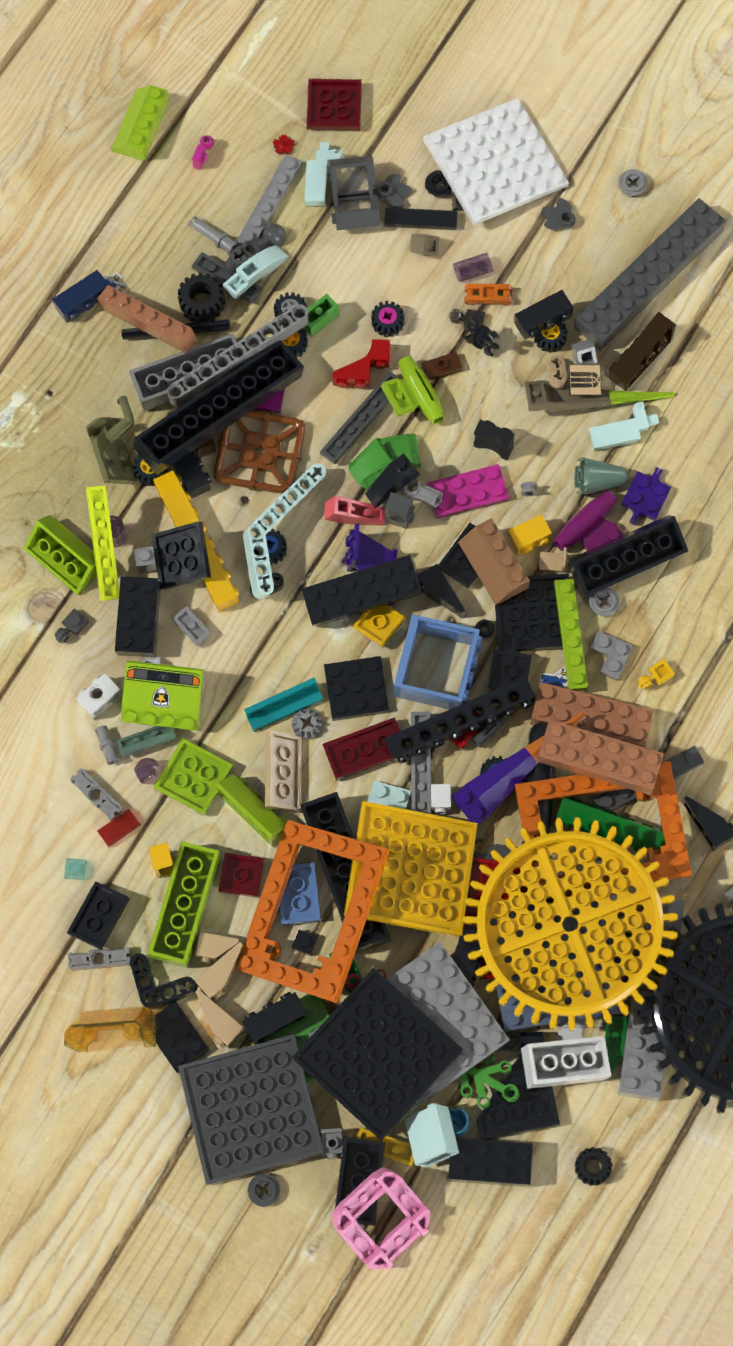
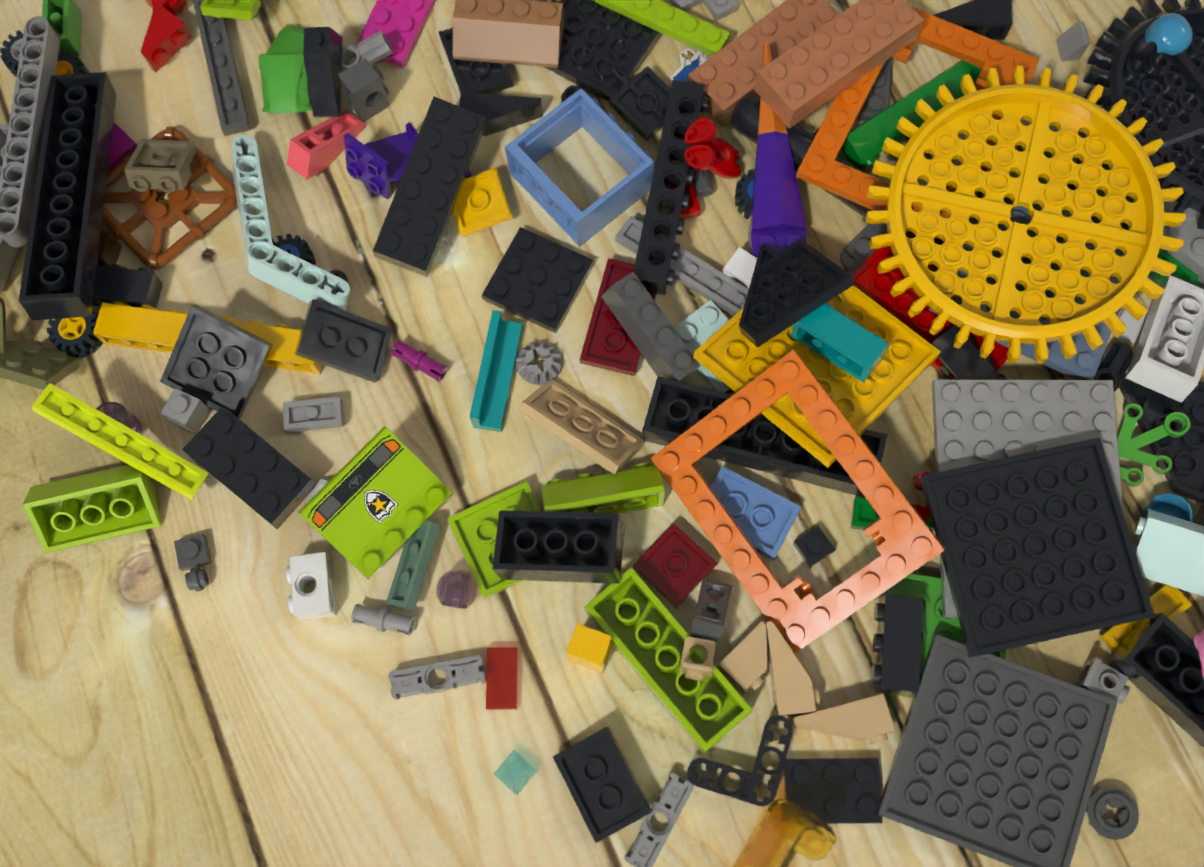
camera: 55 degrees left, 0 degrees up
(184, 917) = (693, 670): none -> tan bracket
(203, 805) = (559, 546): none -> black brick
(226, 909) = (711, 610): none -> dark grey piece
(241, 612) = (343, 341): none -> black plate
(261, 659) = (419, 360): none -> magenta pin
(273, 437) = (160, 165): none -> dark tan plate
(362, 769) = (649, 329): none -> dark grey brick
(424, 873) = (841, 341): none -> teal brick
(432, 825) = (788, 289): none -> black wing
(496, 740) = (711, 152): none -> red piece

